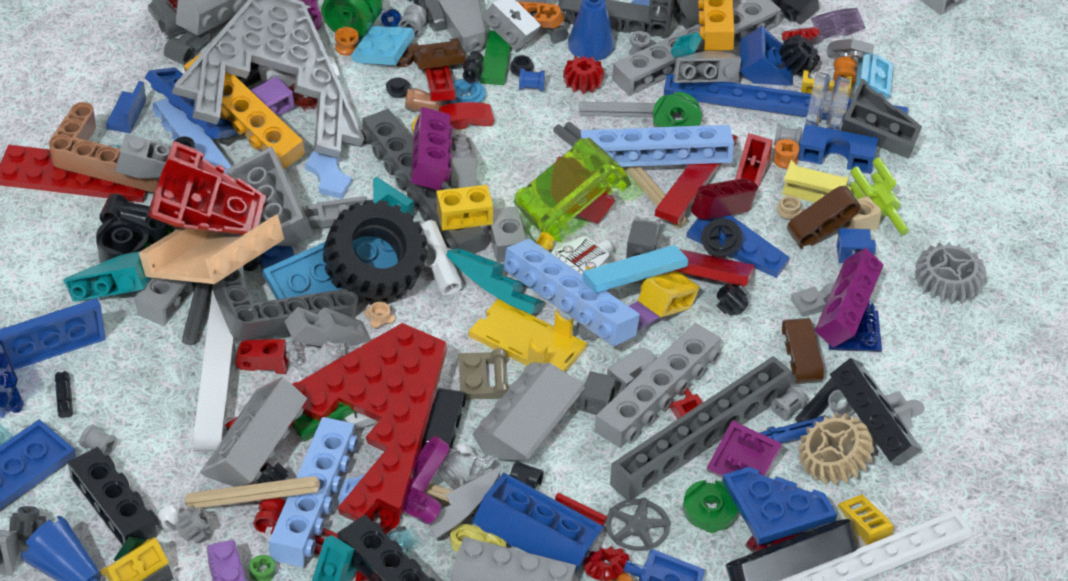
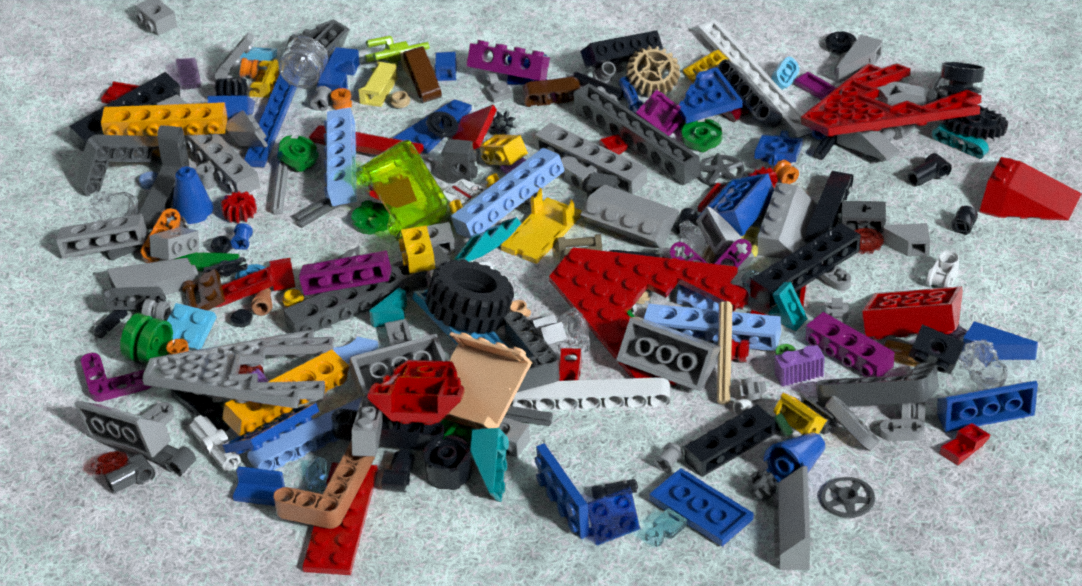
camera: 85 degrees left, 5 degrees down
(635, 268) = (493, 153): medium azure tile -> none
(686, 44) = (225, 137): teal tile -> none
(724, 198) = (399, 123): dark red beam -> none
(755, 158) = (361, 116): red slope -> none
(809, 33) = (202, 90): red gear -> none
(943, 272) = (473, 23): light grey gear -> none

